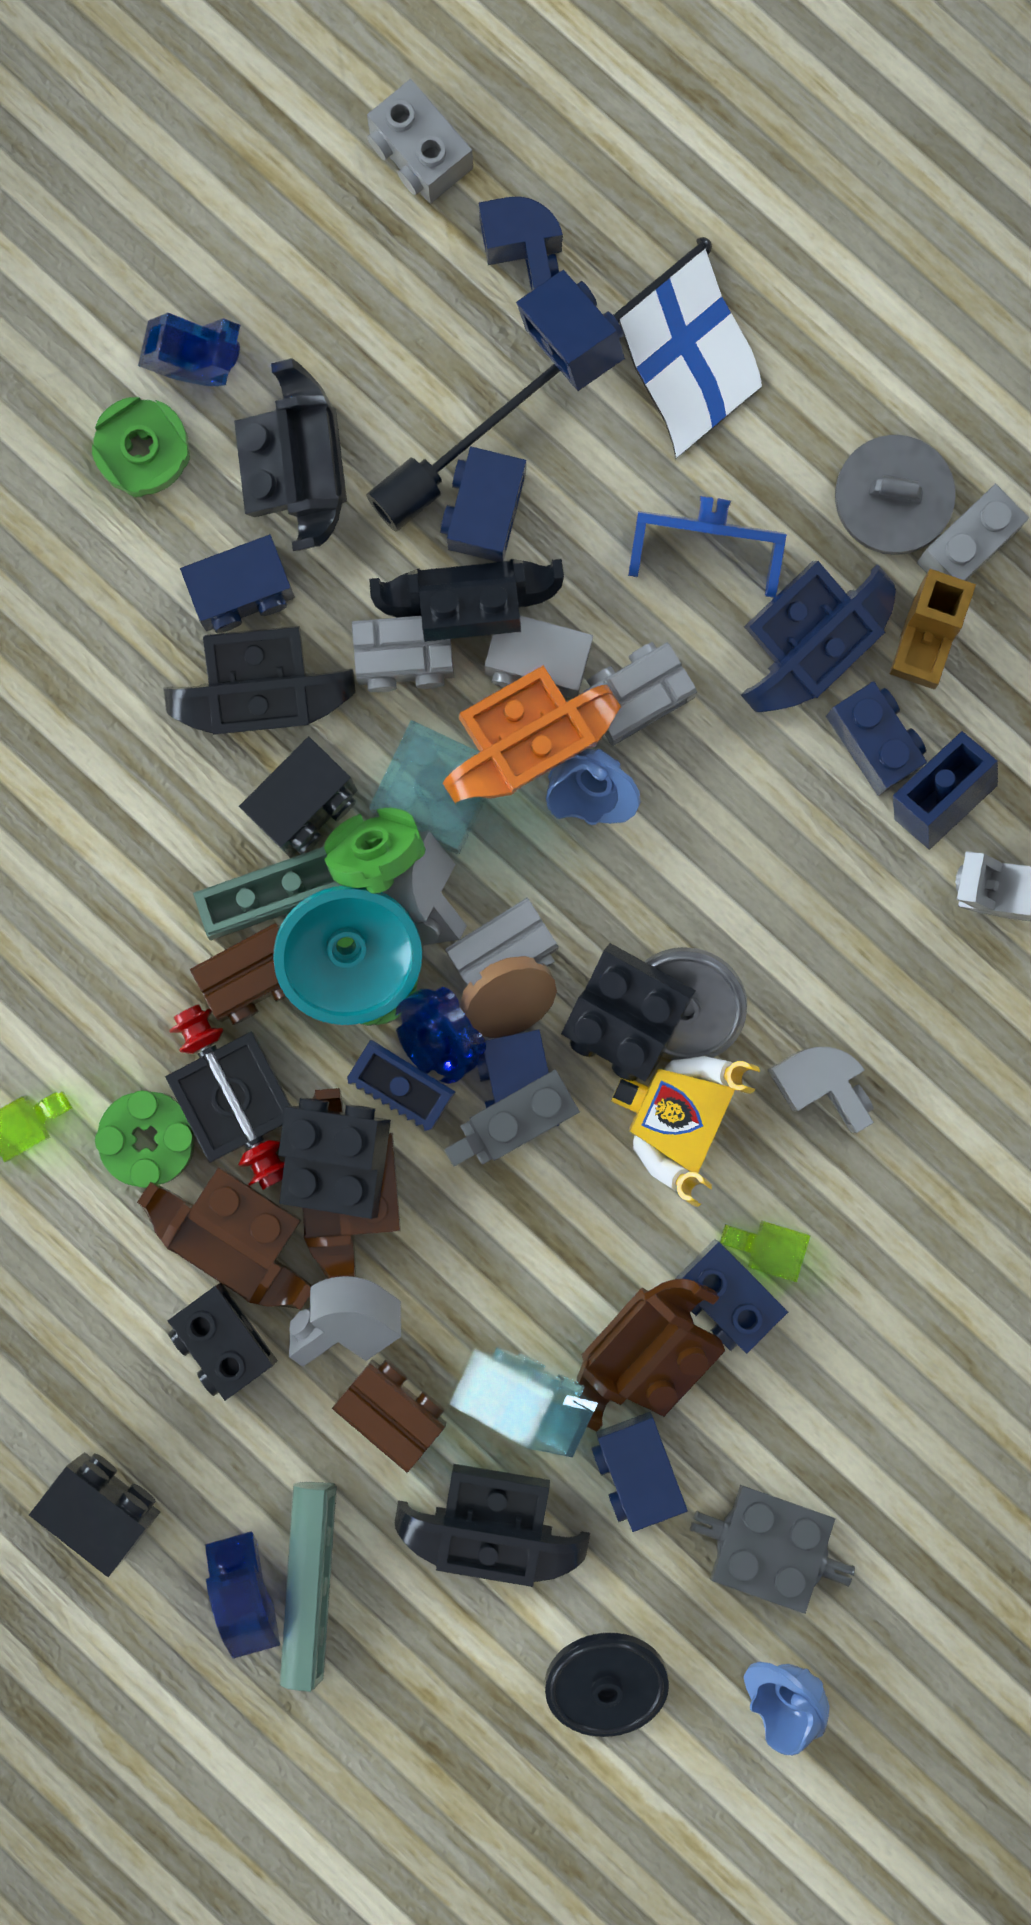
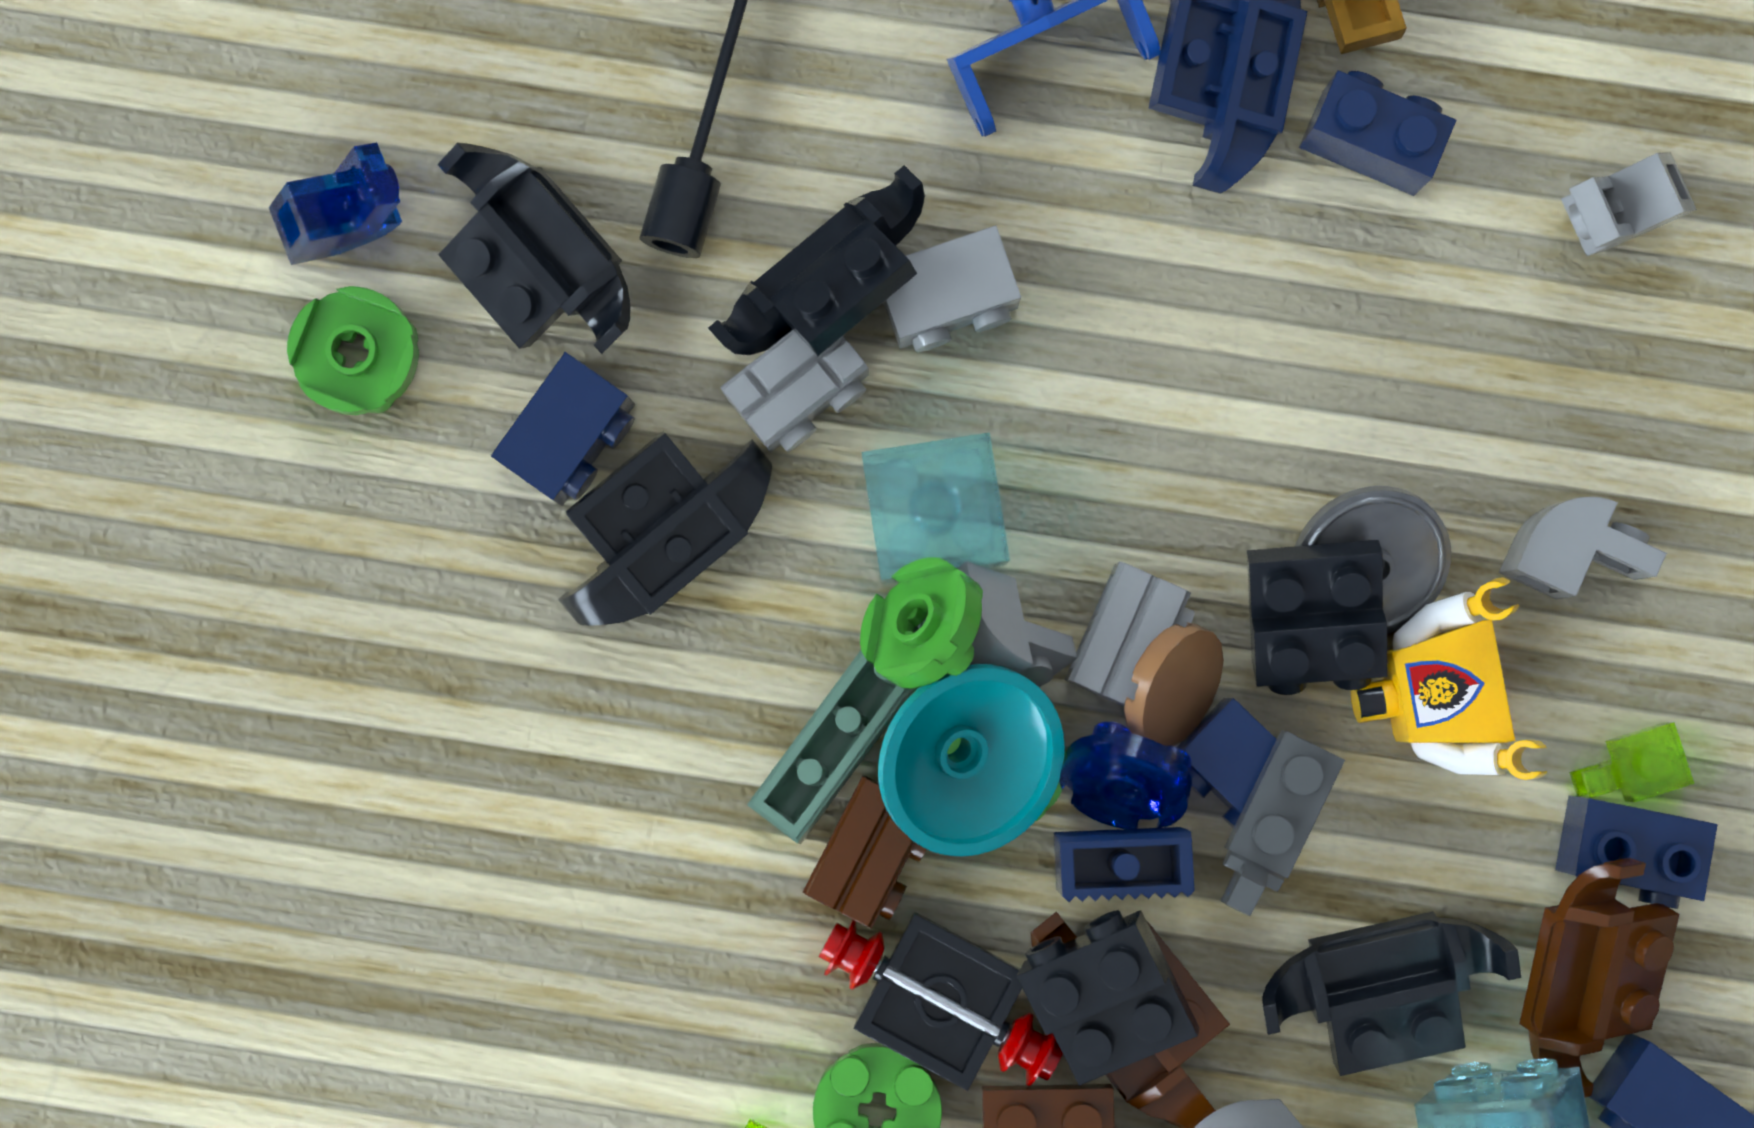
camera: 30 degrees left, 0 degrees up
(300, 798) = (798, 619): black brick -> none
(485, 504) = (777, 161): dark blue brick -> none
(514, 1277) = (1388, 987): none -> black plate
(527, 733) = (1004, 383): orange plate -> none
(592, 789) = (1107, 393): medium blue piece -> none
(645, 689) = (1085, 255): light grey brick -> none
(945, 790) = (1492, 138): dark blue brick -> none

